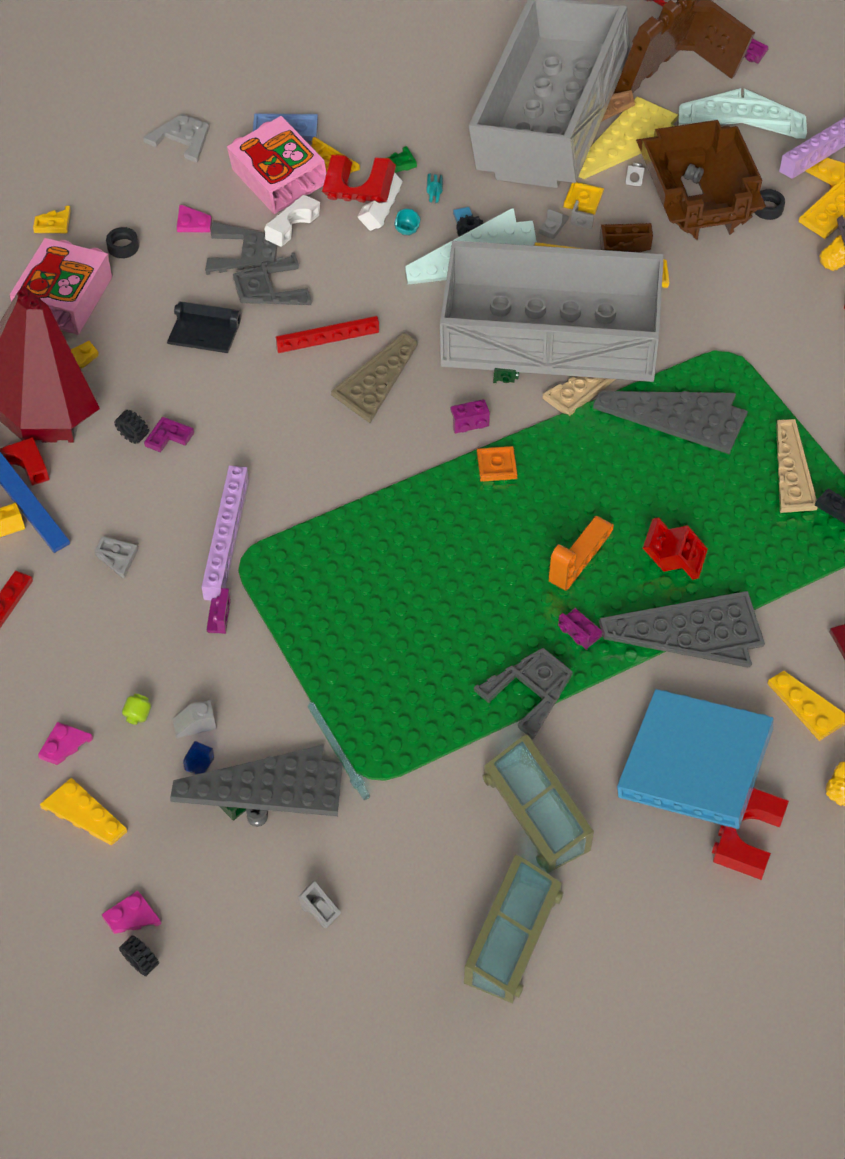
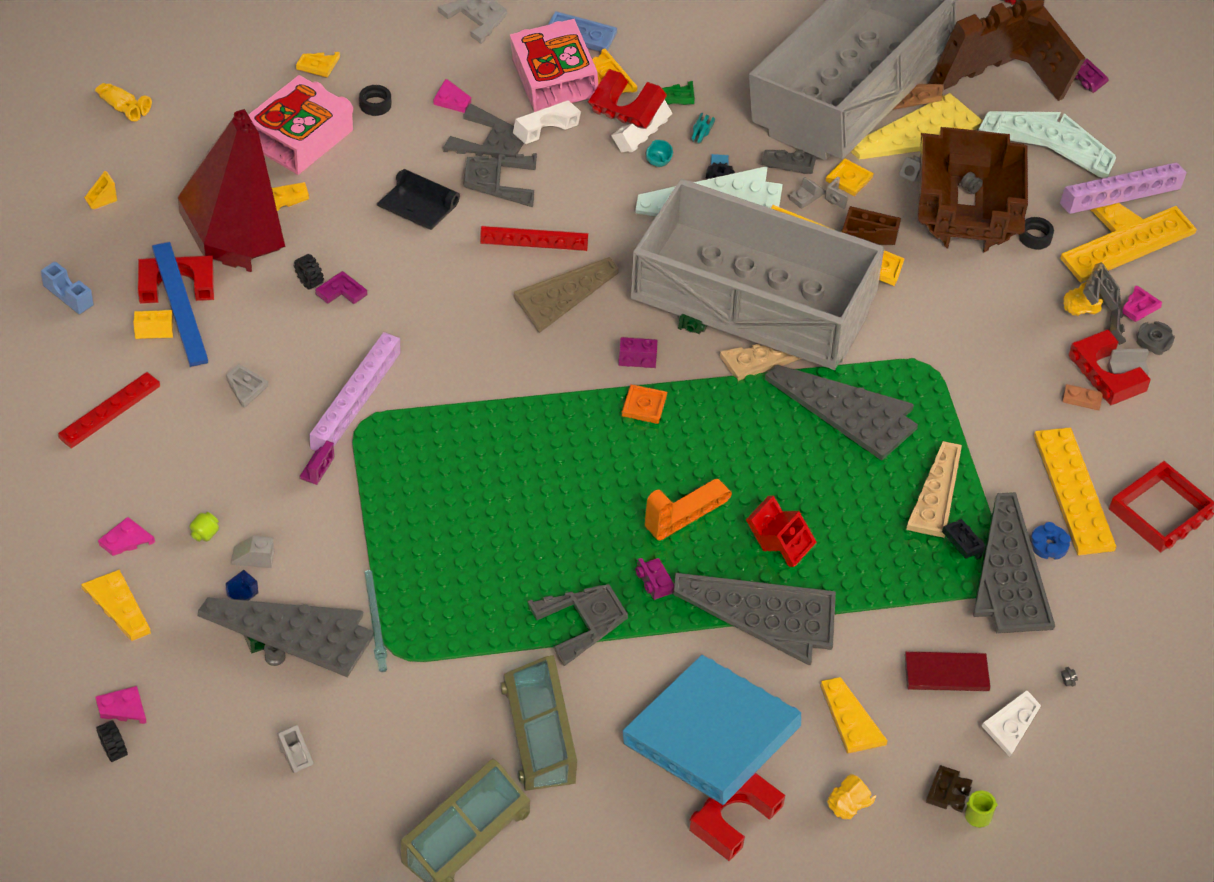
camera: 15 degrees right, 5 degrees down
(526, 197) = (795, 161): none -> dark grey wing

